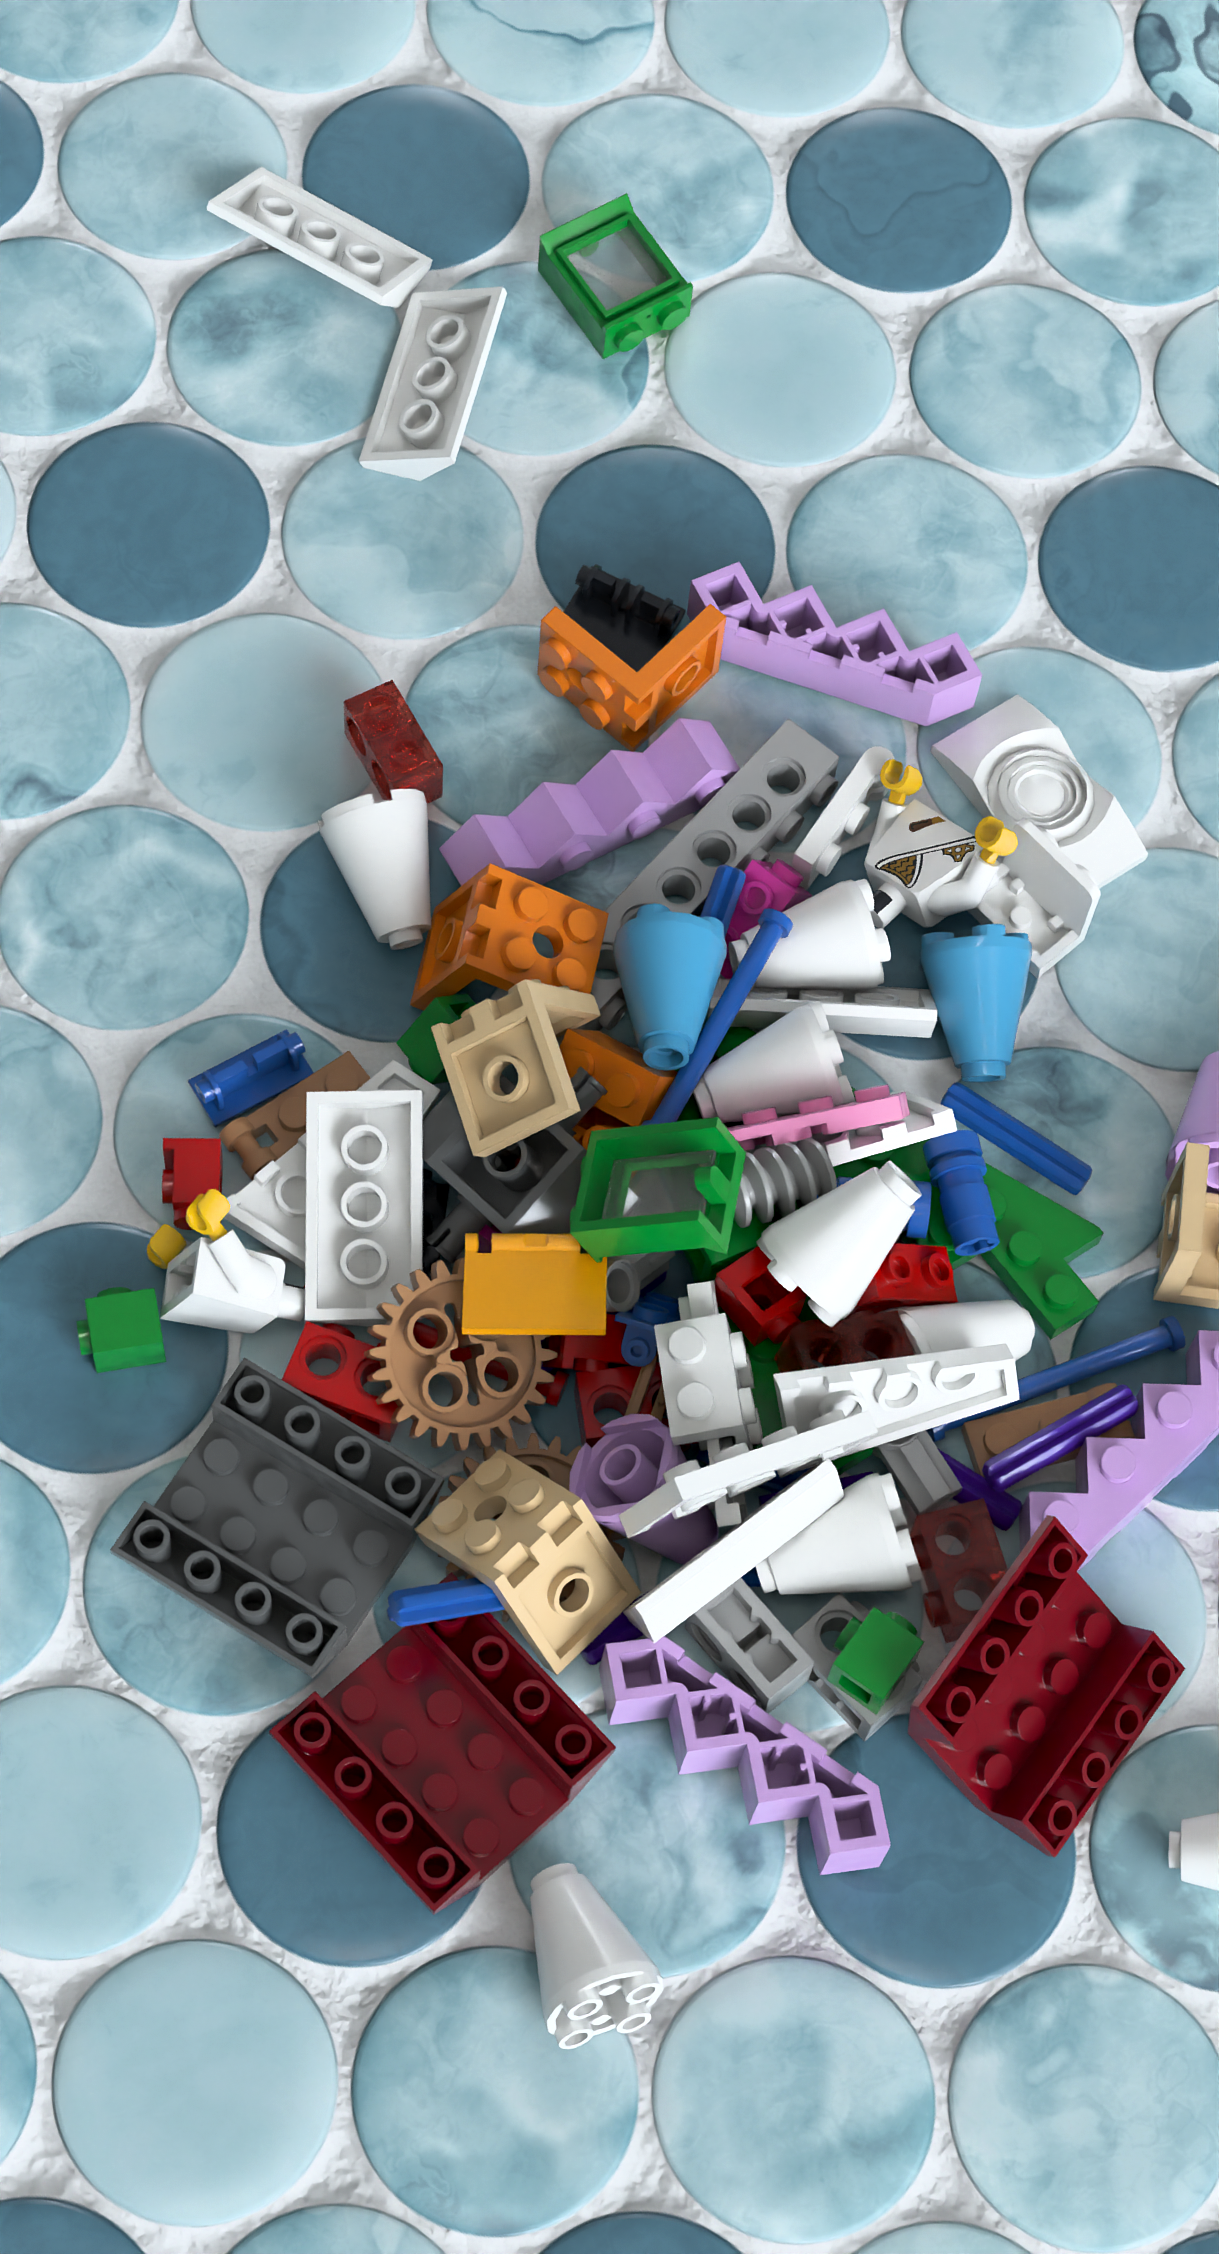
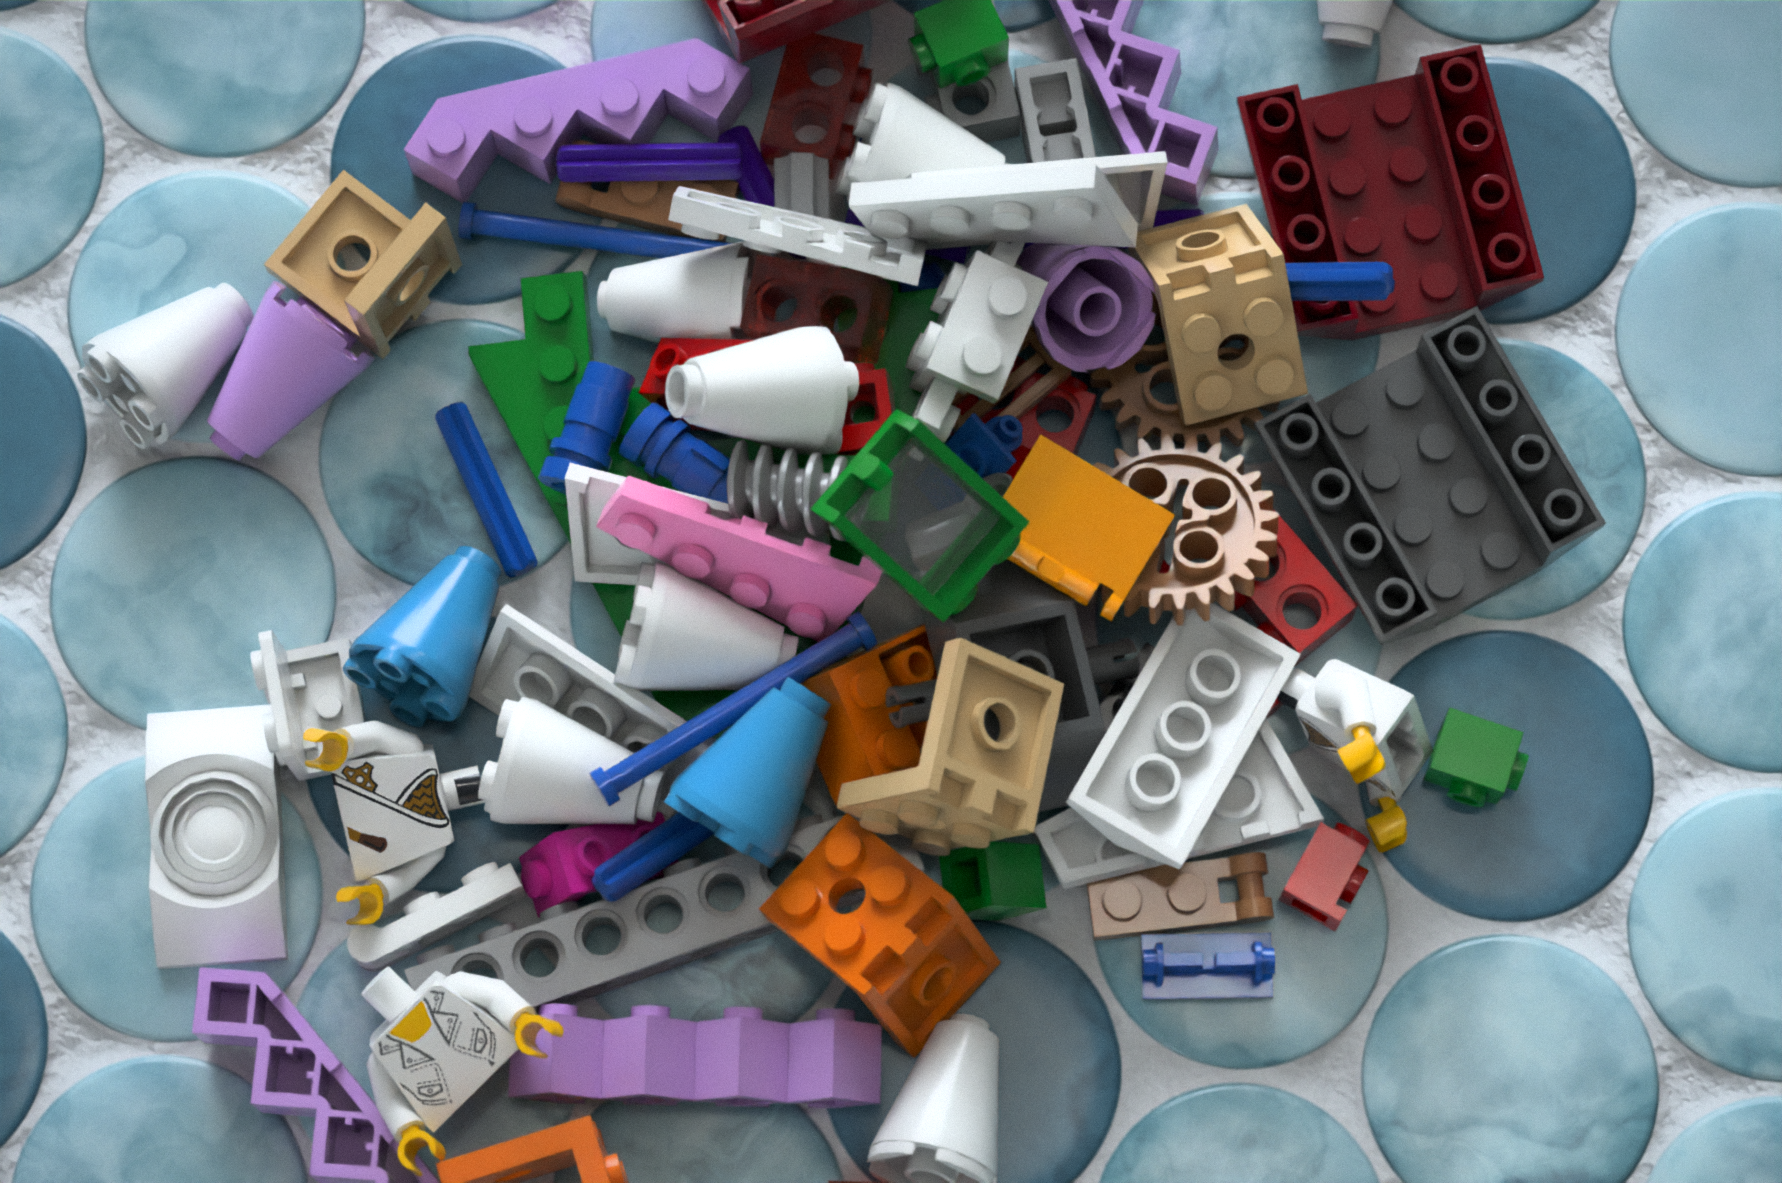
camera: 140 degrees left, 10 degrees up
(774, 701) = (442, 1049): none -> white torso

